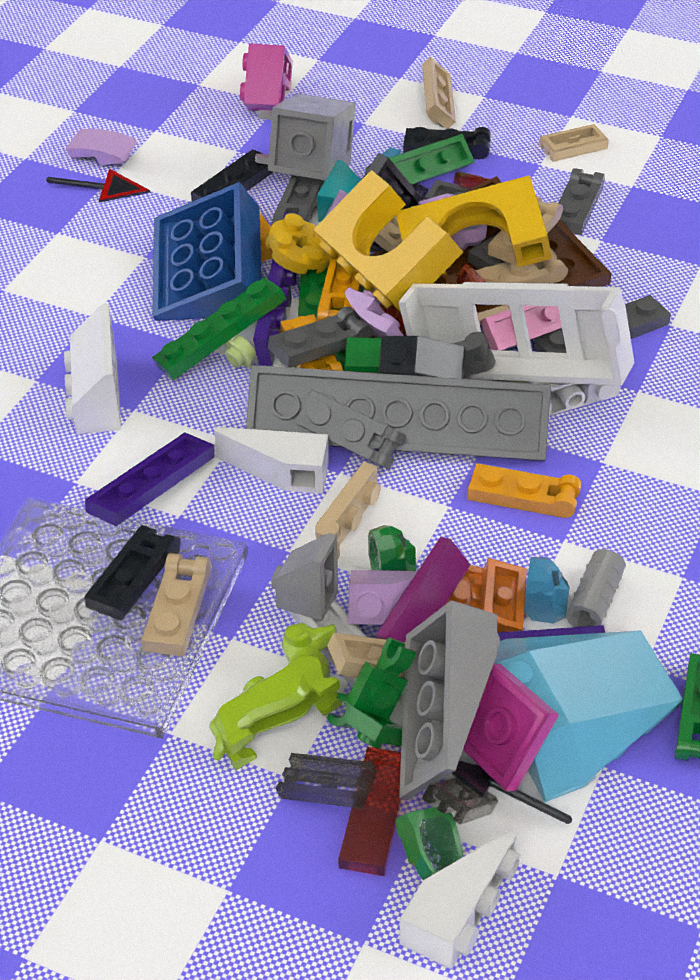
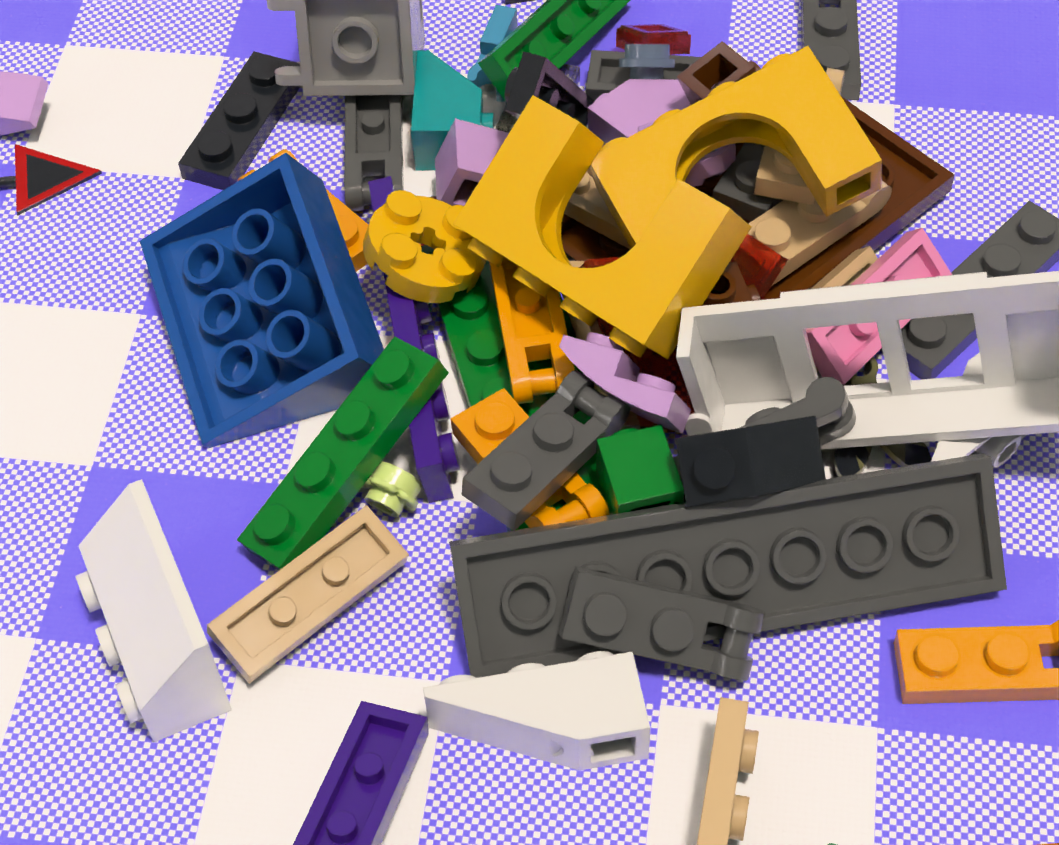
camera: 15 degrees left, 10 degrees up
(177, 384) = (307, 594): none -> tan plate
(459, 184) = (647, 60): none -> sand blue plate

